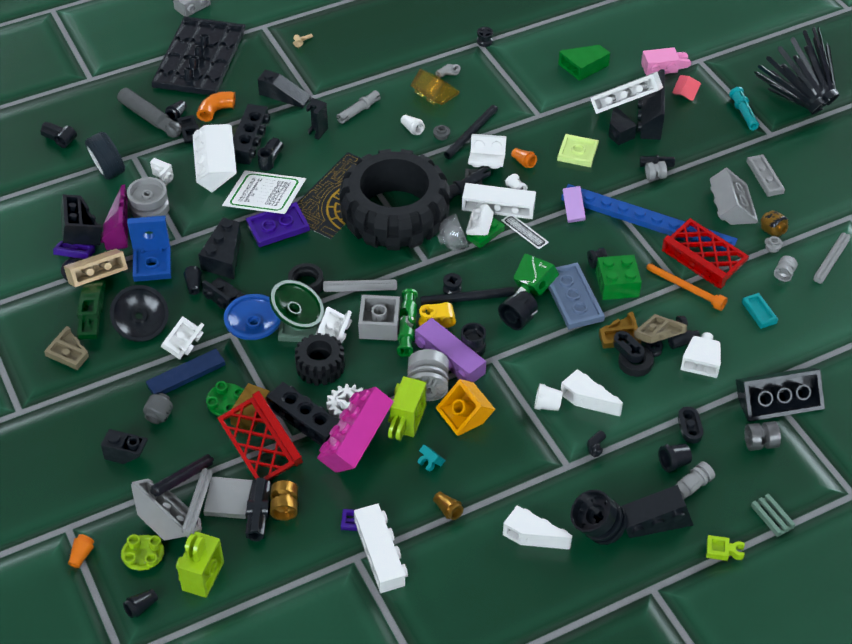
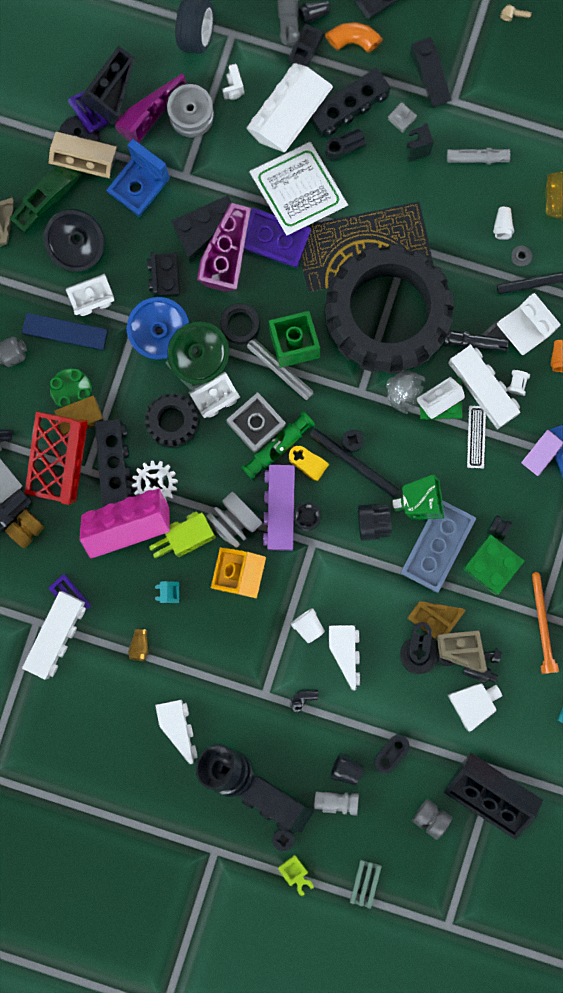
camera: 50 degrees right, 35 degrees up
(193, 279) = (152, 237): black cone -> none
(256, 246) = (223, 256): none -> magenta wedge
(290, 121) = (402, 117): none -> light grey tile
(352, 257) = (294, 339): none -> green brick
(689, 540) = (282, 836): none -> black wheel

